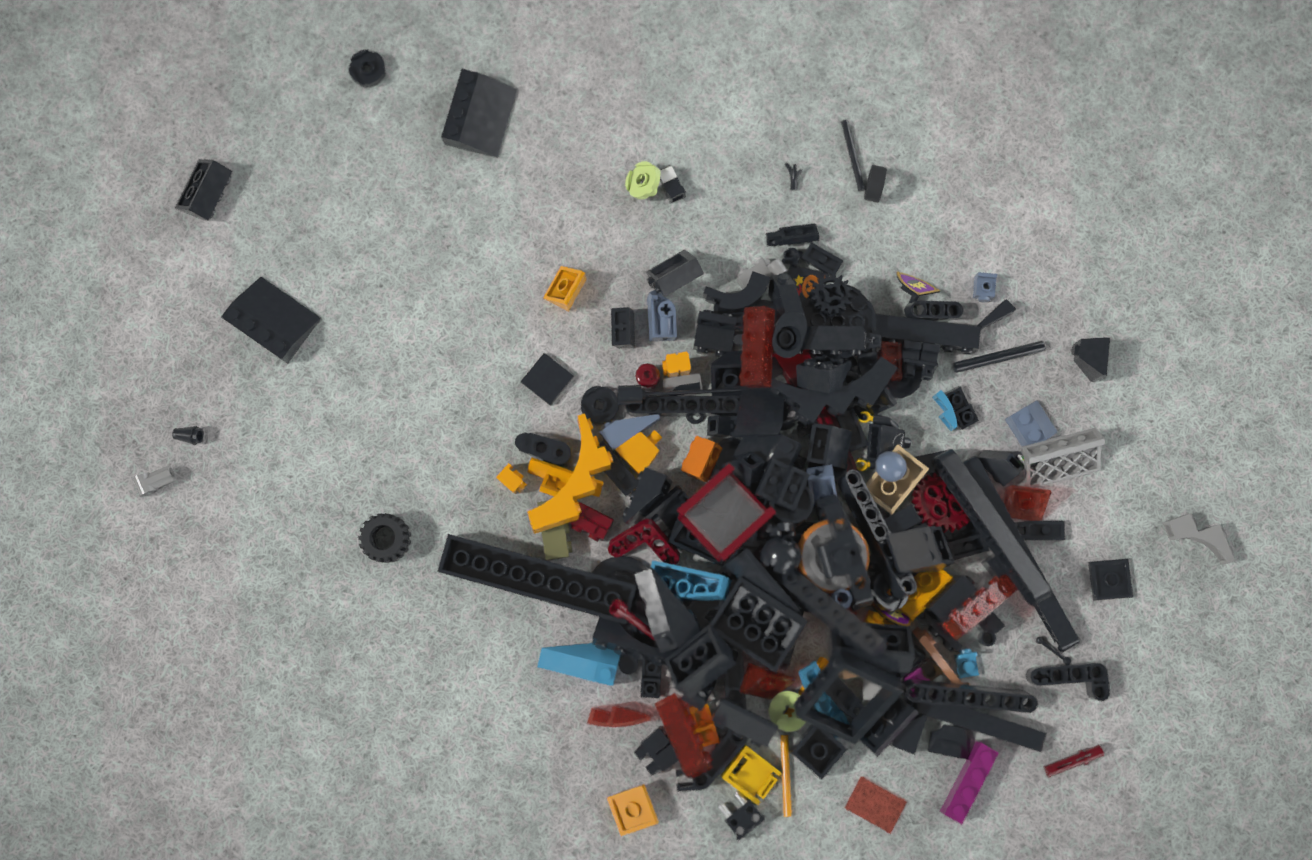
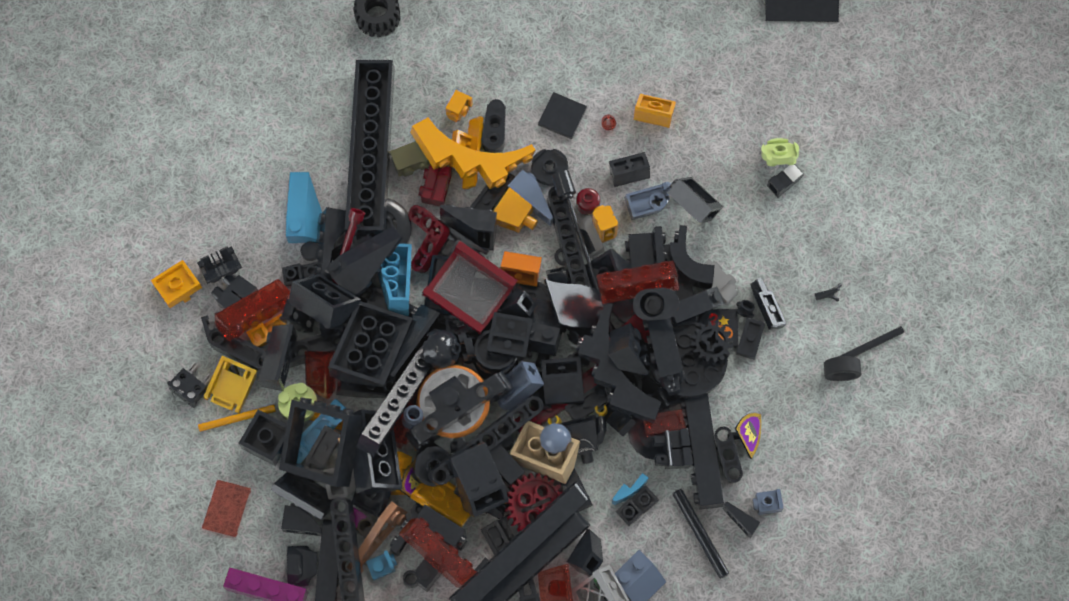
camera: 75 degrees right, 10 degrees down
(569, 332) = (612, 122): none -> clear red hinge
(617, 717) = (258, 249): clear red slope -> none
(626, 760) = (215, 271): none -> black hinge

